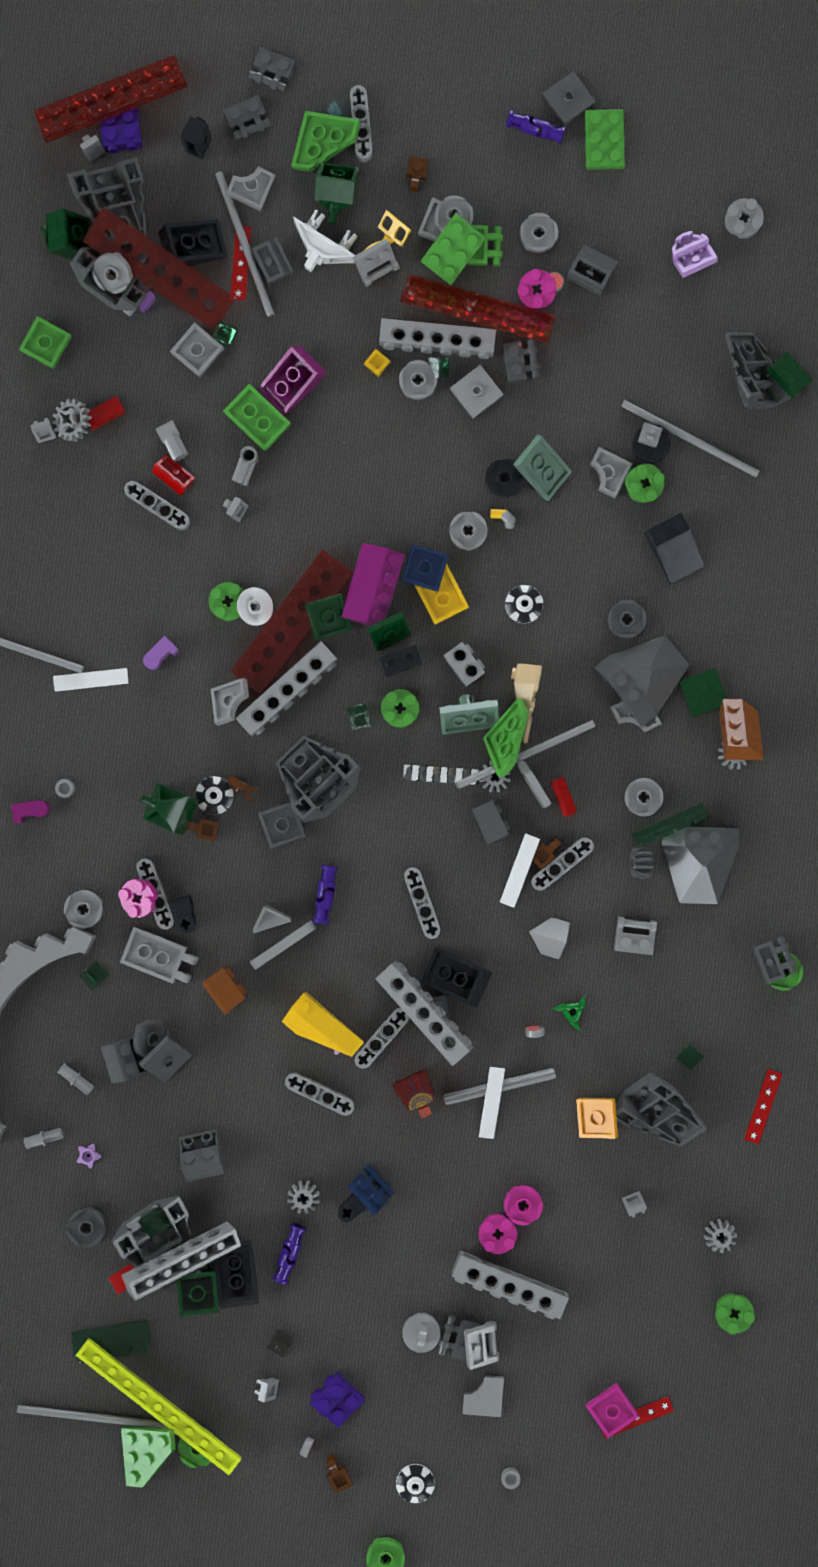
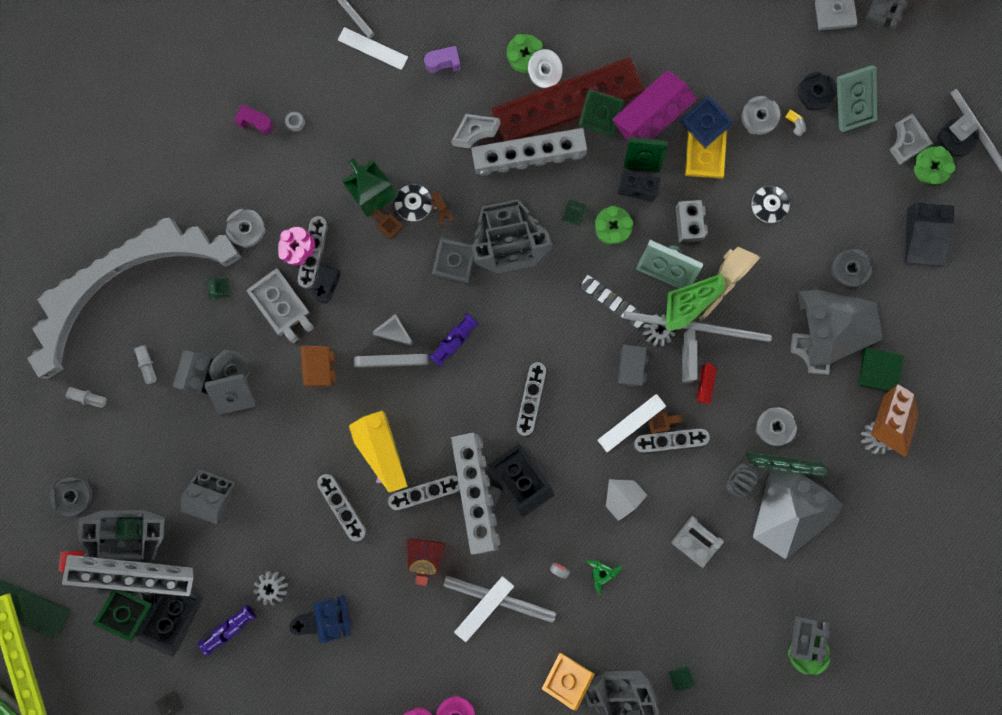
camera: 30 degrees right, 5 degrees down
(83, 1155) = (108, 436): lavender plate -> none

